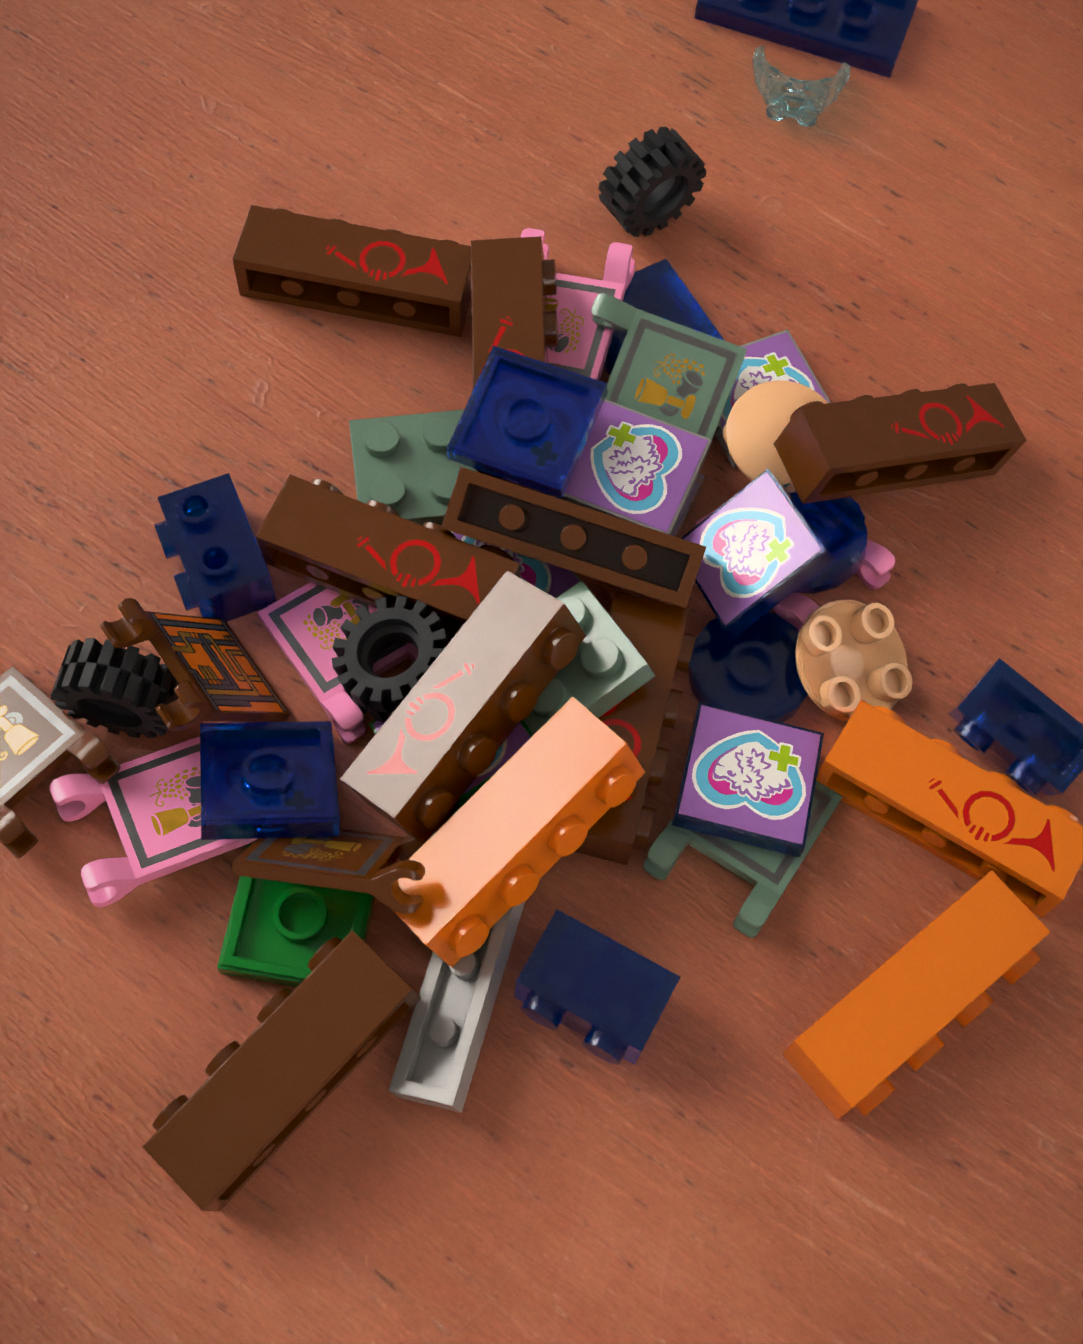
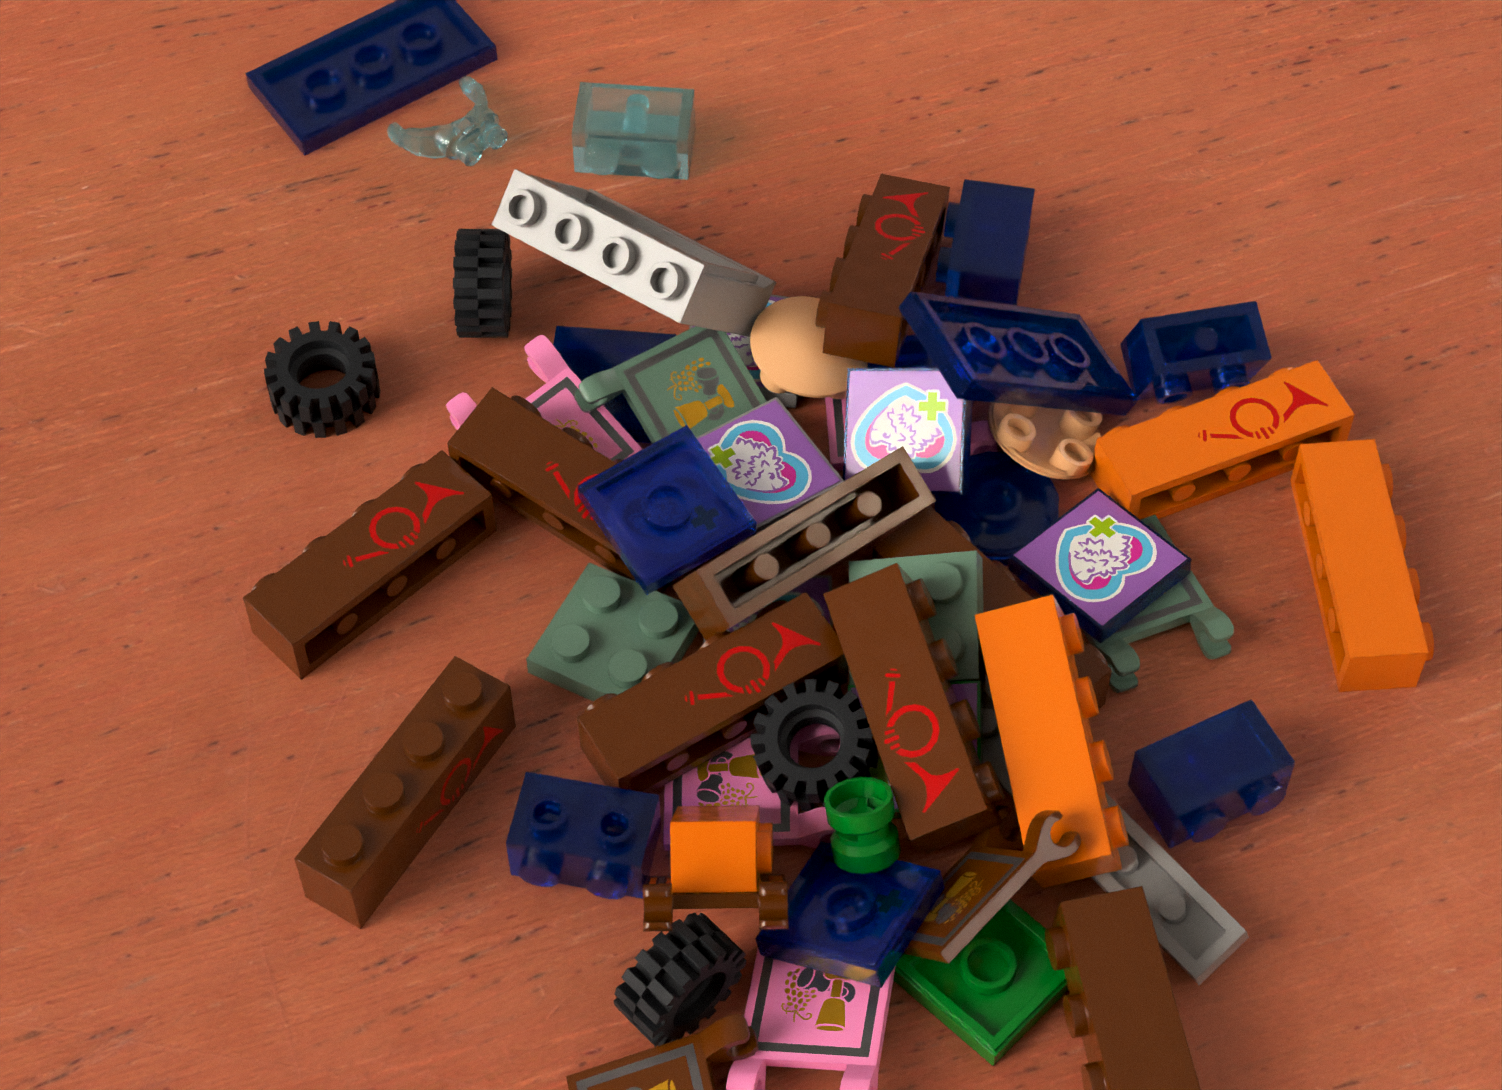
camera: 50 degrees left, 10 degrees down
(170, 411) = (406, 792): none -> reddish brown brick
(243, 642) = (719, 849): none -> orange brick
(337, 734) = (862, 836): none -> green wheel
(495, 121) = (328, 405): none -> black tyre
(747, 257) = (633, 254): none -> light grey window
(886, 585) = (1017, 354): none -> clear blue tile
(892, 197) = (634, 130): none -> clear light blue brick
(995, 506) = (988, 242): none -> clear blue brick

